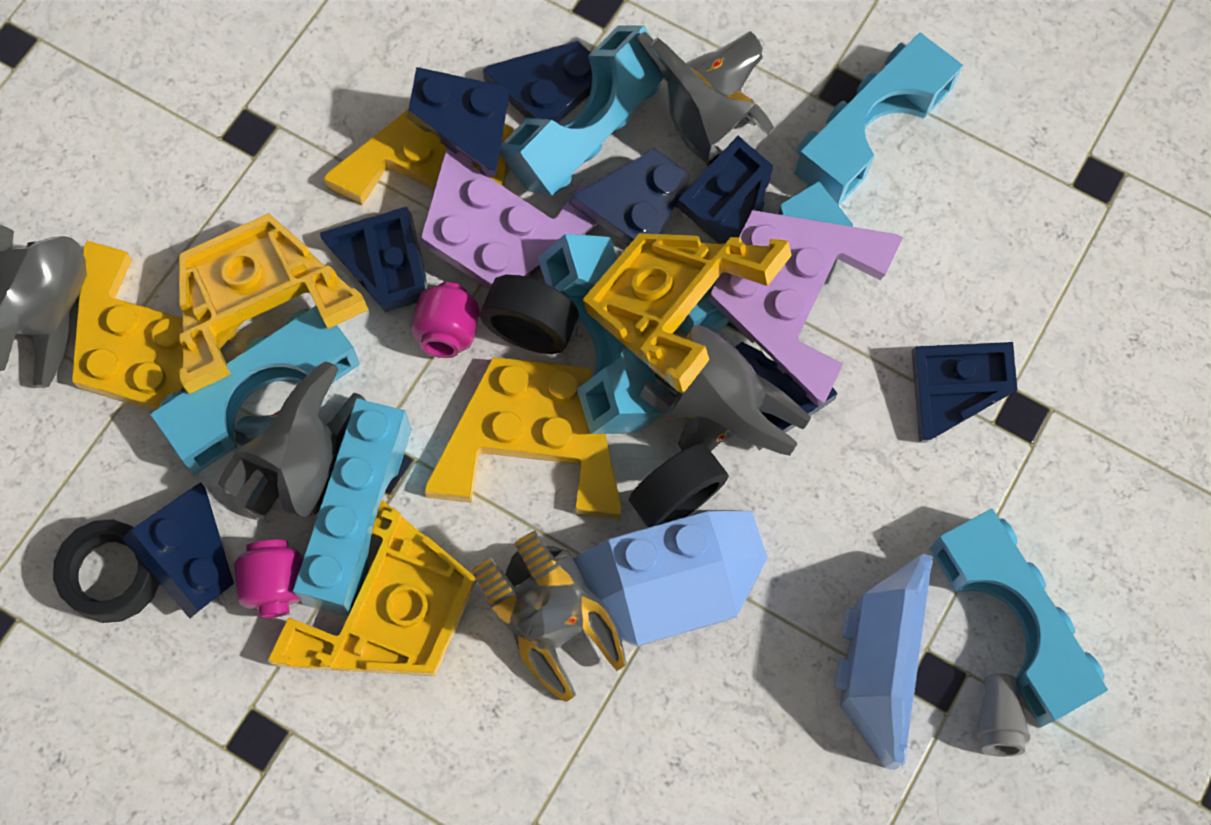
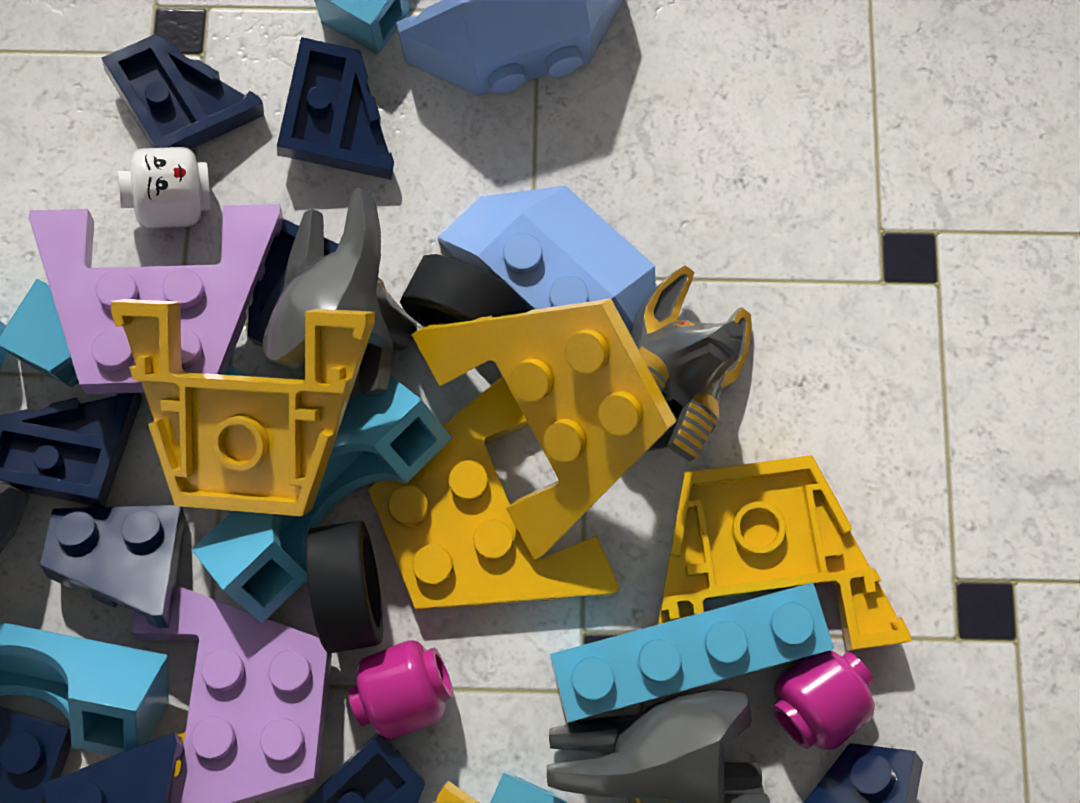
camera: 115 degrees left, 5 degrees up
(563, 508) = (579, 392): none -> yellow wing
(885, 341) = (165, 187): none -> white head
(890, 485) = (332, 112): none -> dark blue wing

